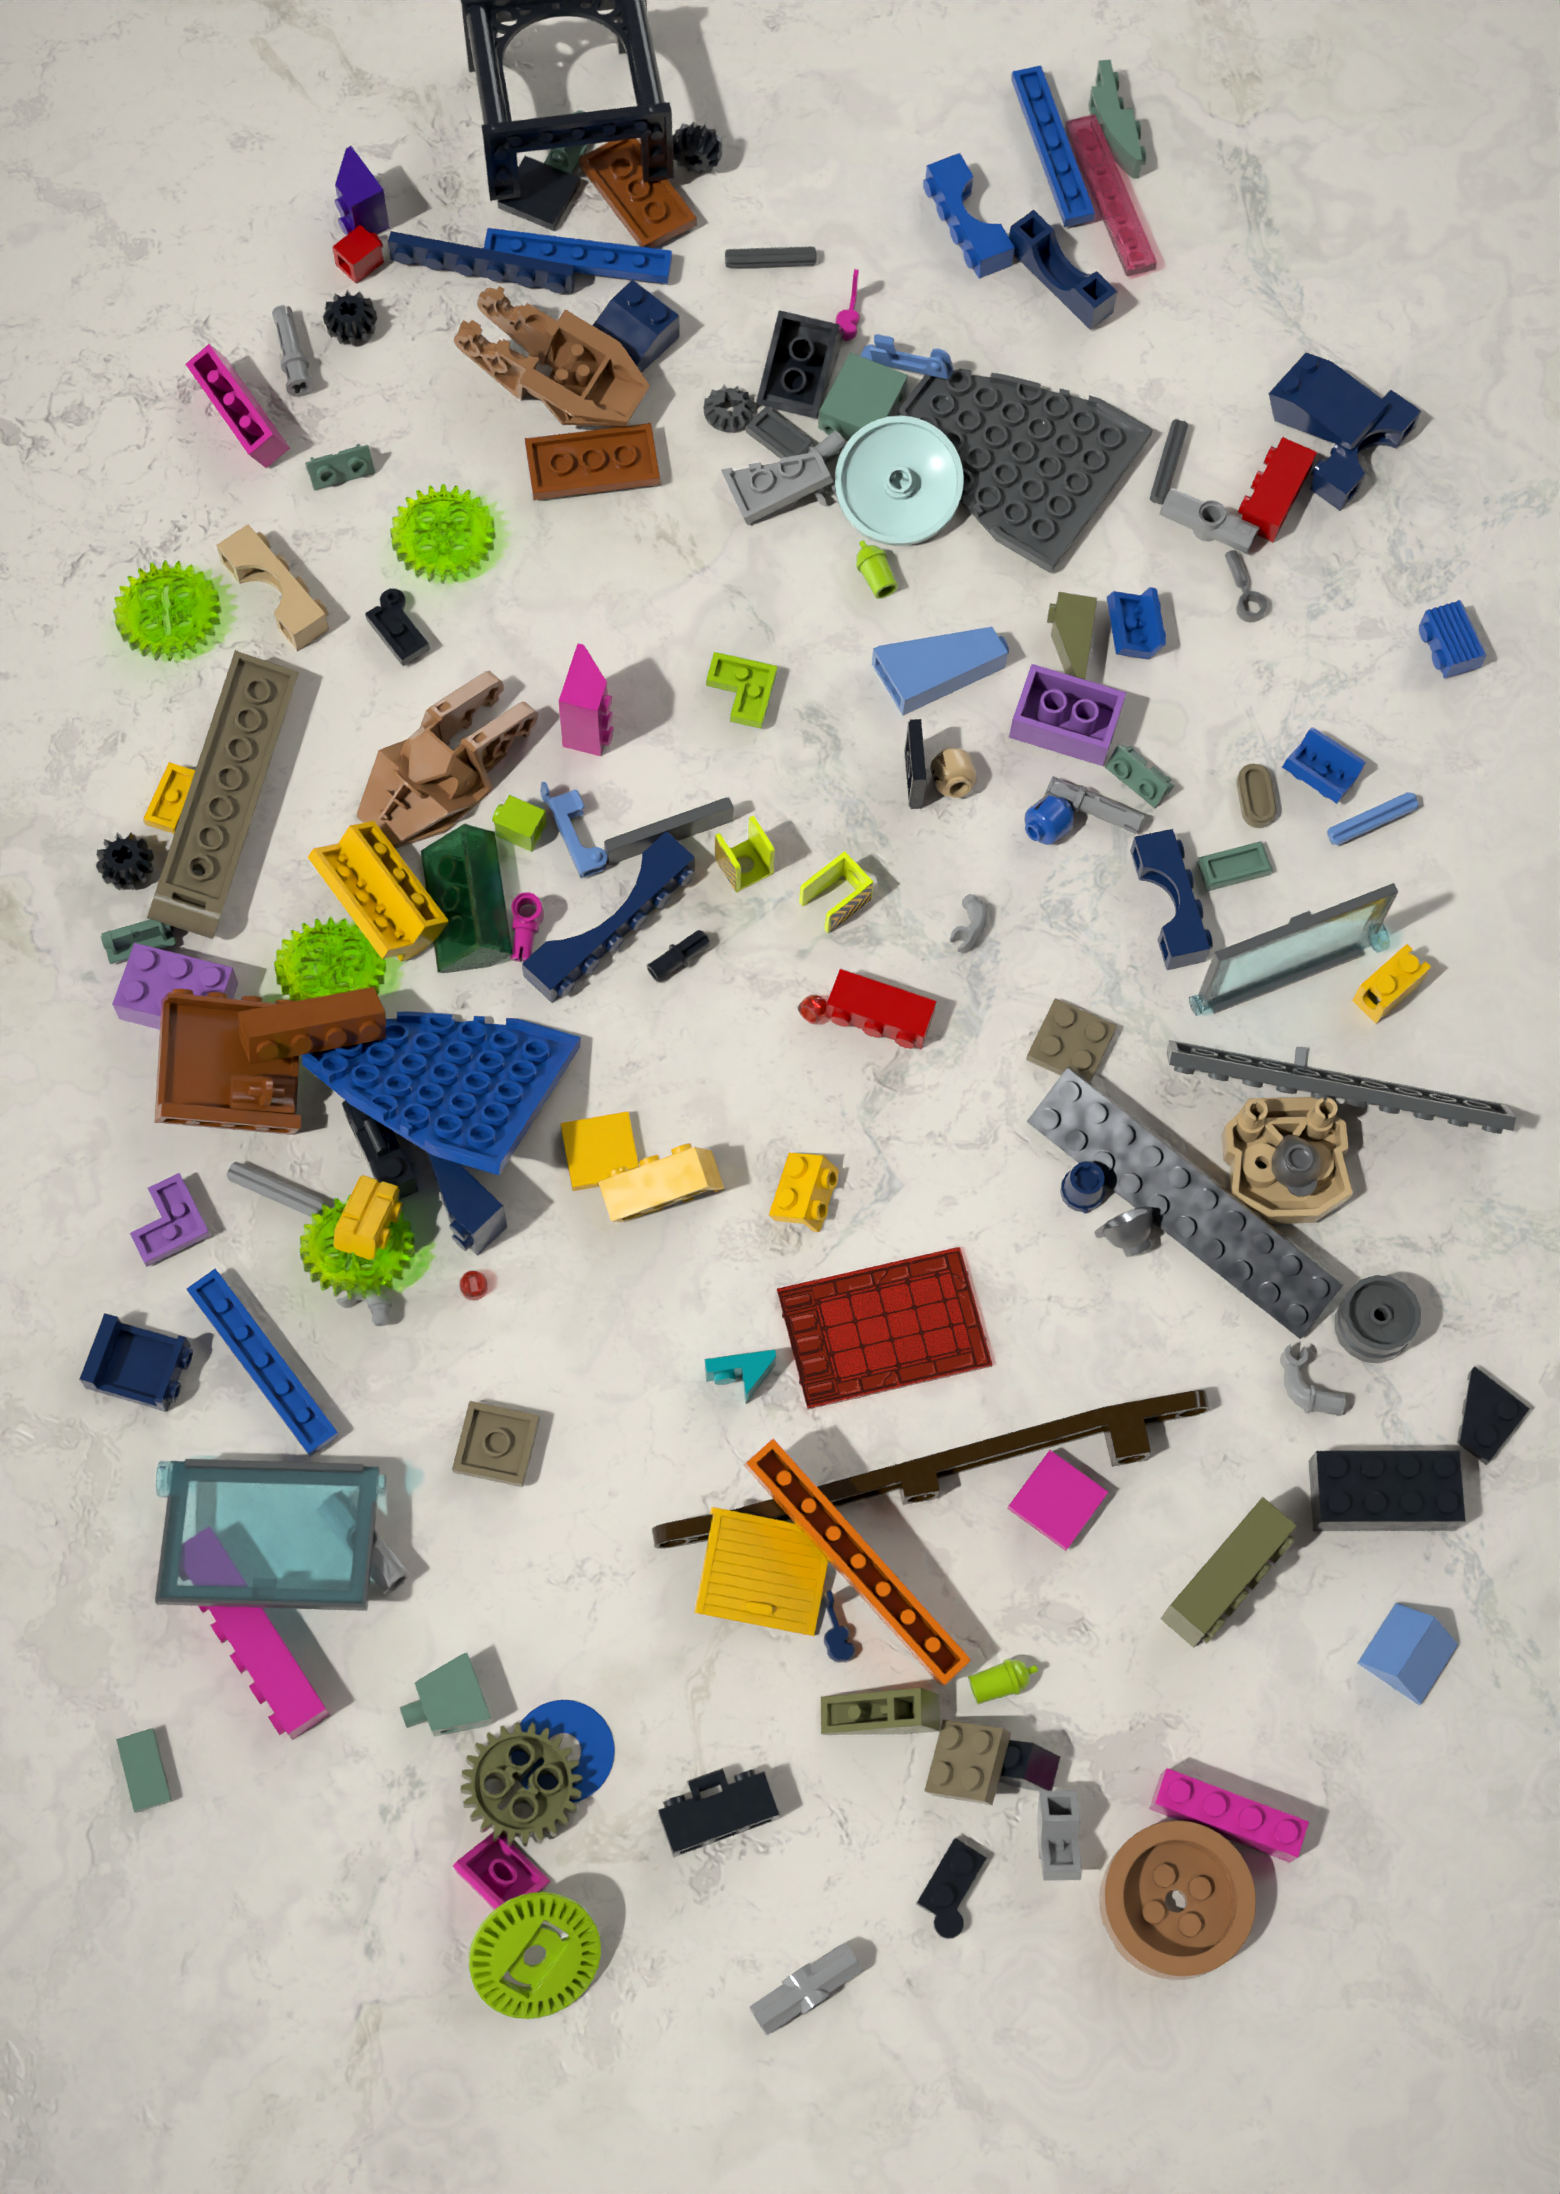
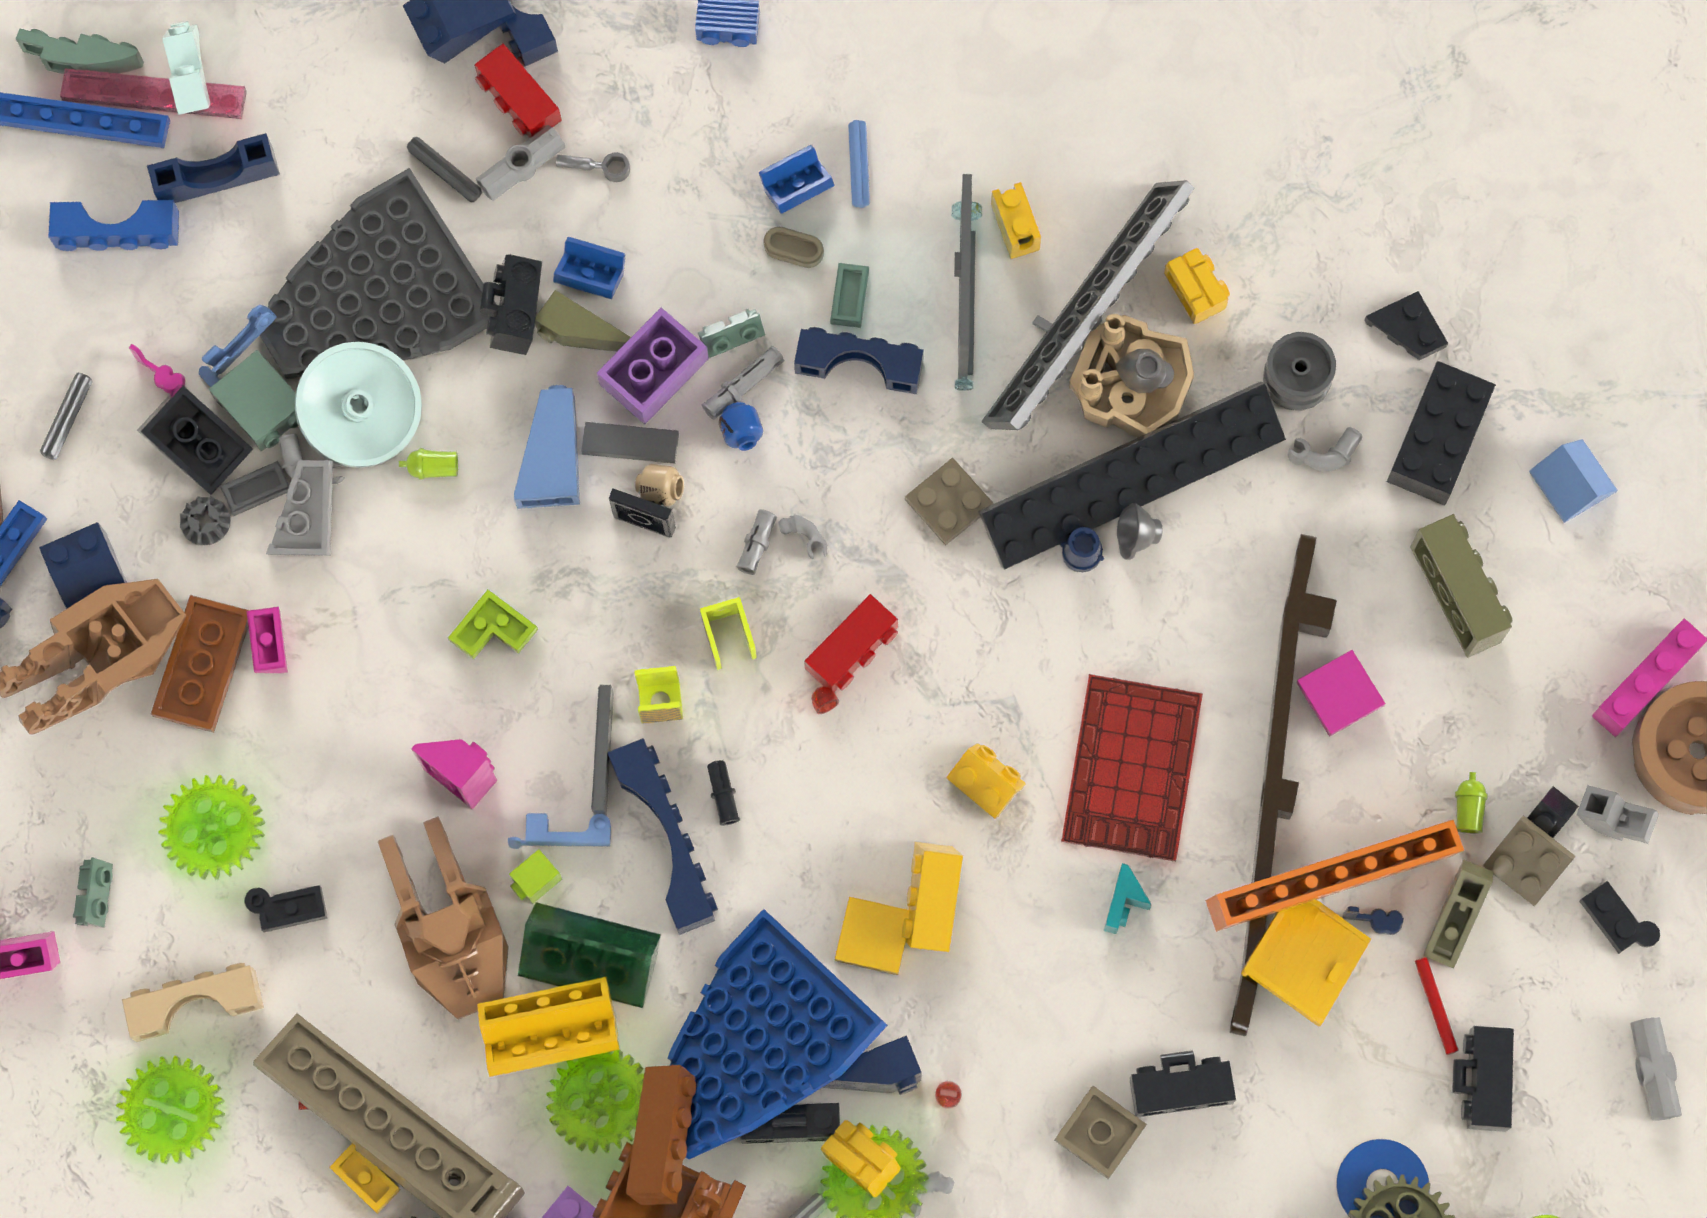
camera: 60 degrees left, 5 degrees up
(525, 927) = (640, 913): dark pink pin -> none
(564, 1493) = (1194, 1089): none -> black piece
(639, 505) = (267, 640): none -> dark pink slope
(773, 1731) = (1436, 1006): none -> red bar
(941, 883) = (756, 542): none -> light grey pin
(984, 732) = (630, 442): none -> dark grey tile
(1071, 571) = (515, 315): none -> black piece
(1155, 196) = (186, 68): none -> light aqua arch
(1416, 1184) = (1197, 285): none -> yellow brick

